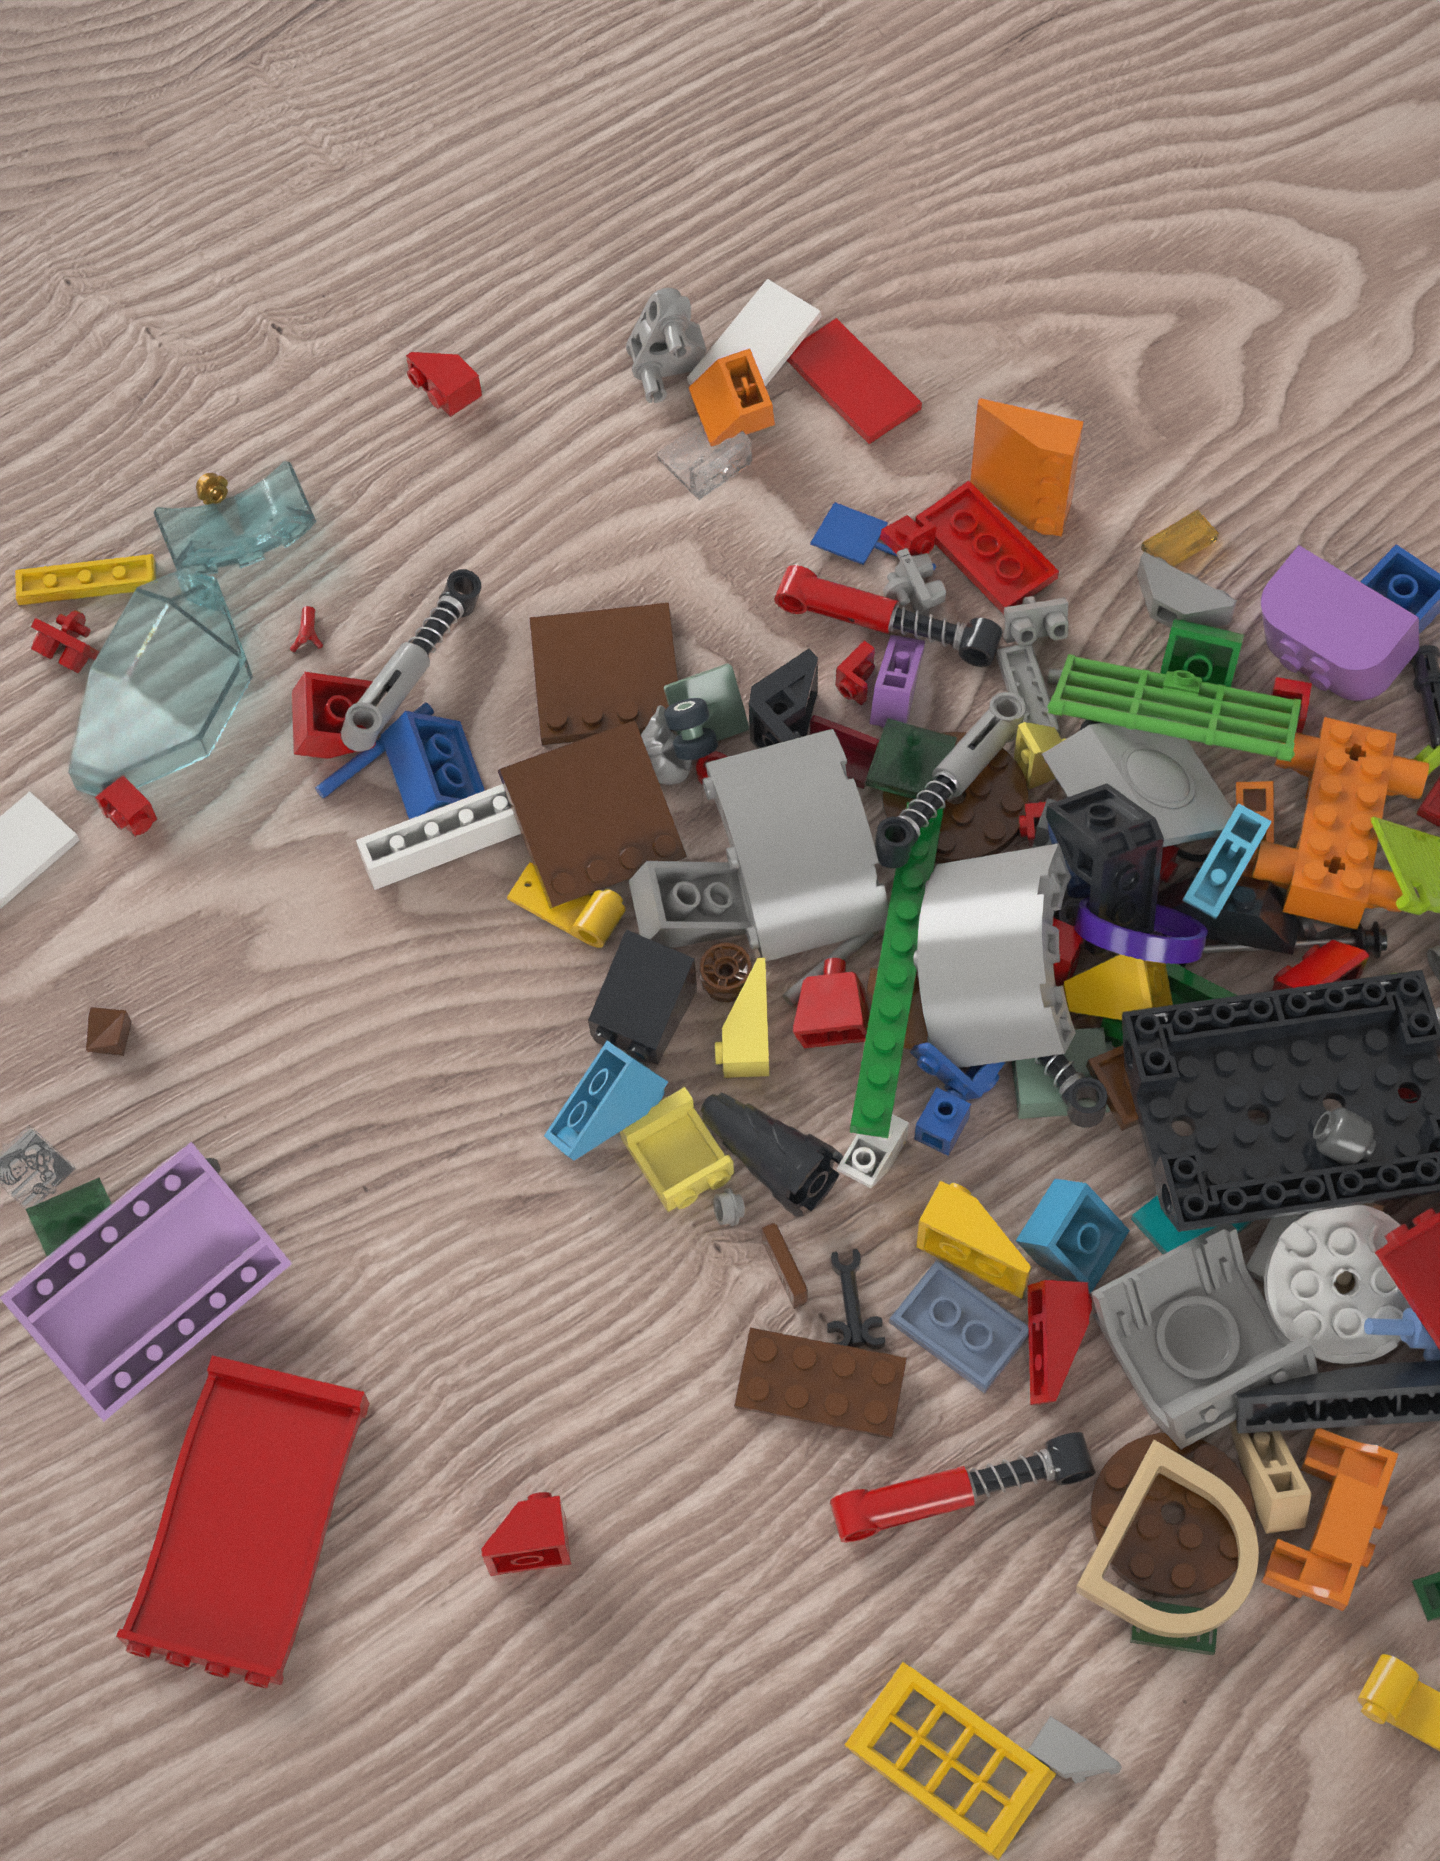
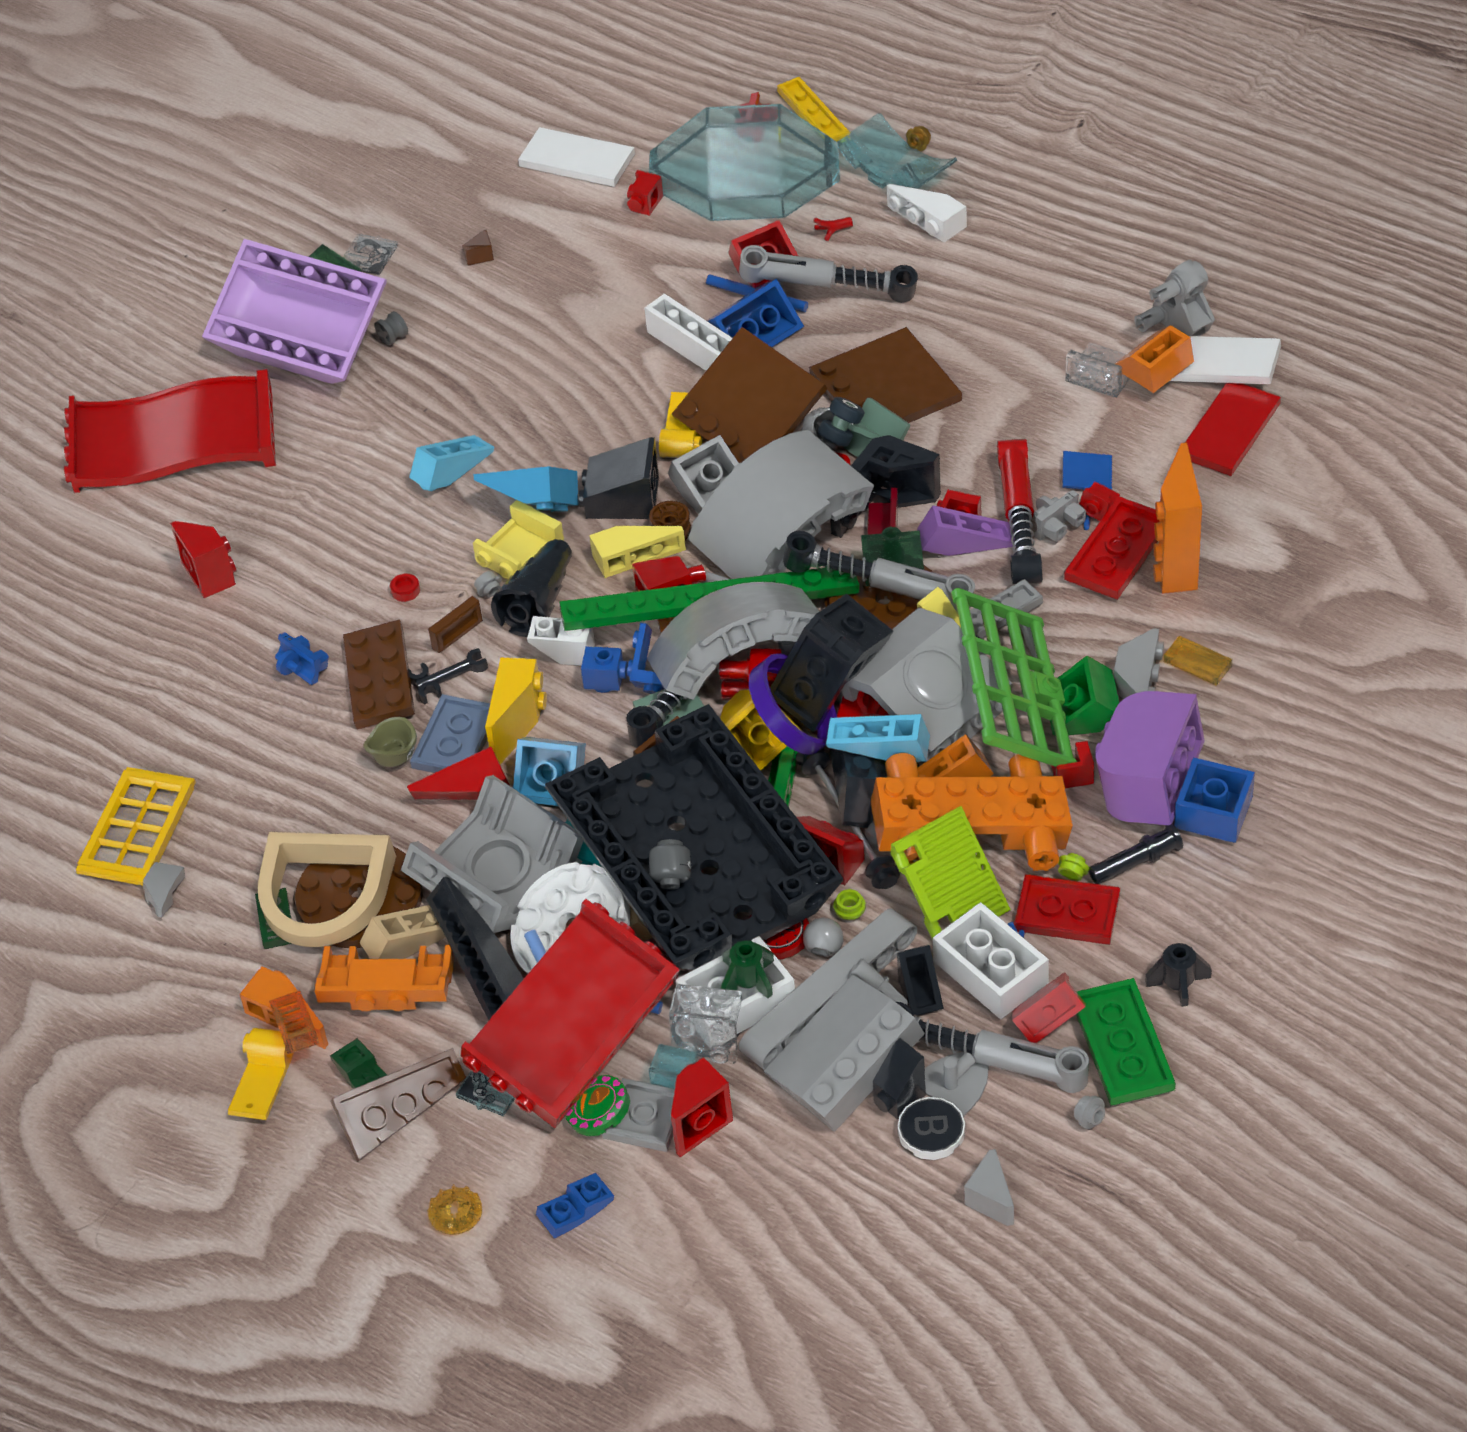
camera: 70 degrees right, 15 degrees down
(349, 522) = (929, 210): none -> white slope
(445, 379) = (1081, 214): red slope -> none
(492, 1184) = (447, 461): none -> medium azure slope
(679, 1307) = (405, 587): none -> red tile
(755, 1473) = (297, 657): none -> blue hips
(866, 1512) = (291, 723): piece -> none
(959, 1397) = (391, 742): none -> olive helmet
(1035, 620) = (1065, 593): light grey hips -> none
(1326, 1654) = (271, 985): none -> orange slope
(1405, 1627) = (298, 1039): none -> clear orange slope

